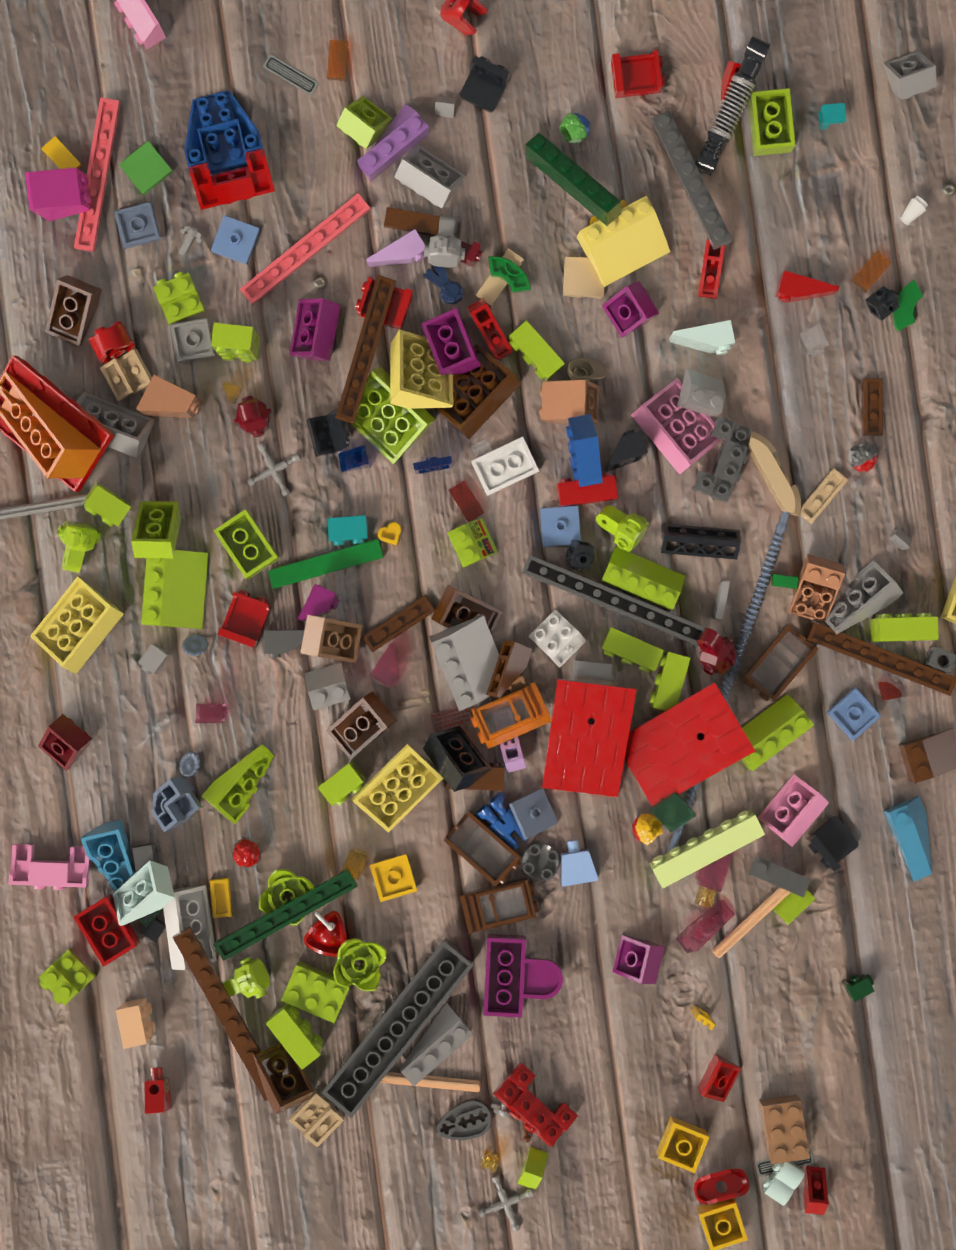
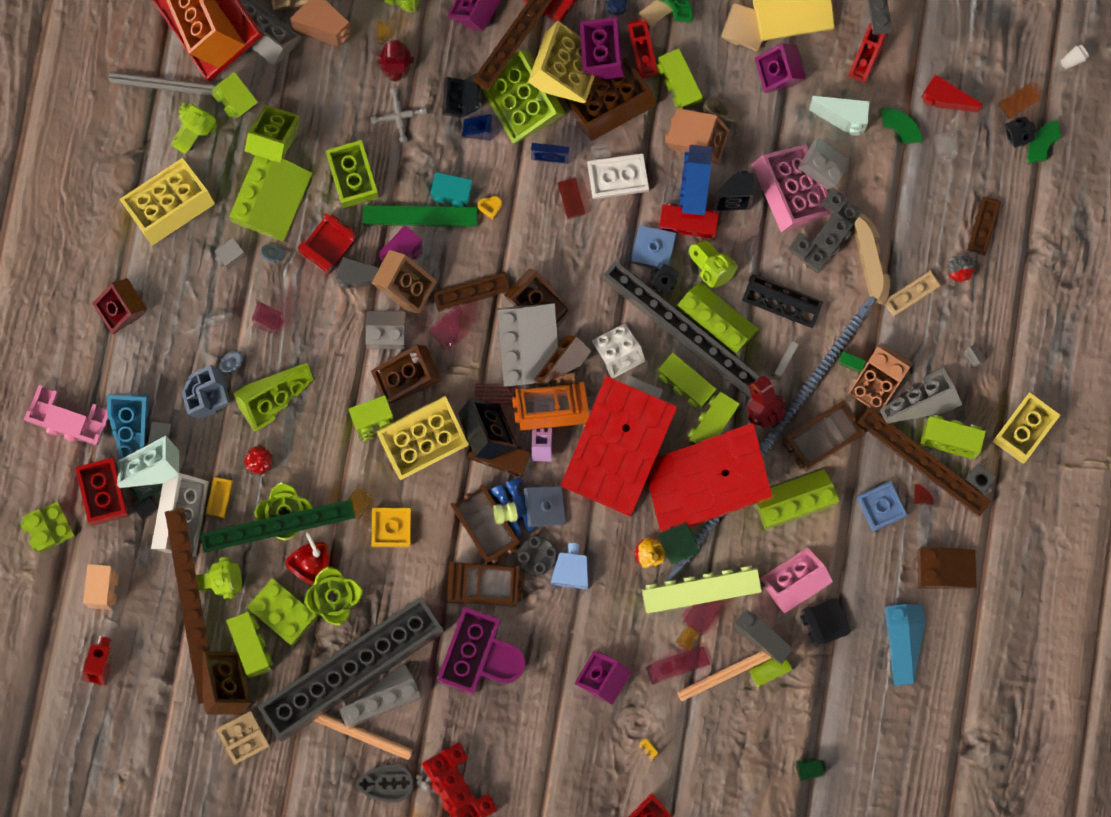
camera: 15 degrees right, 10 degrees down
(472, 542) = (564, 237): lime slope -> none
(499, 835) = (505, 513): none -> yellowish green wheel
(764, 329) = (902, 125): none -> green tile

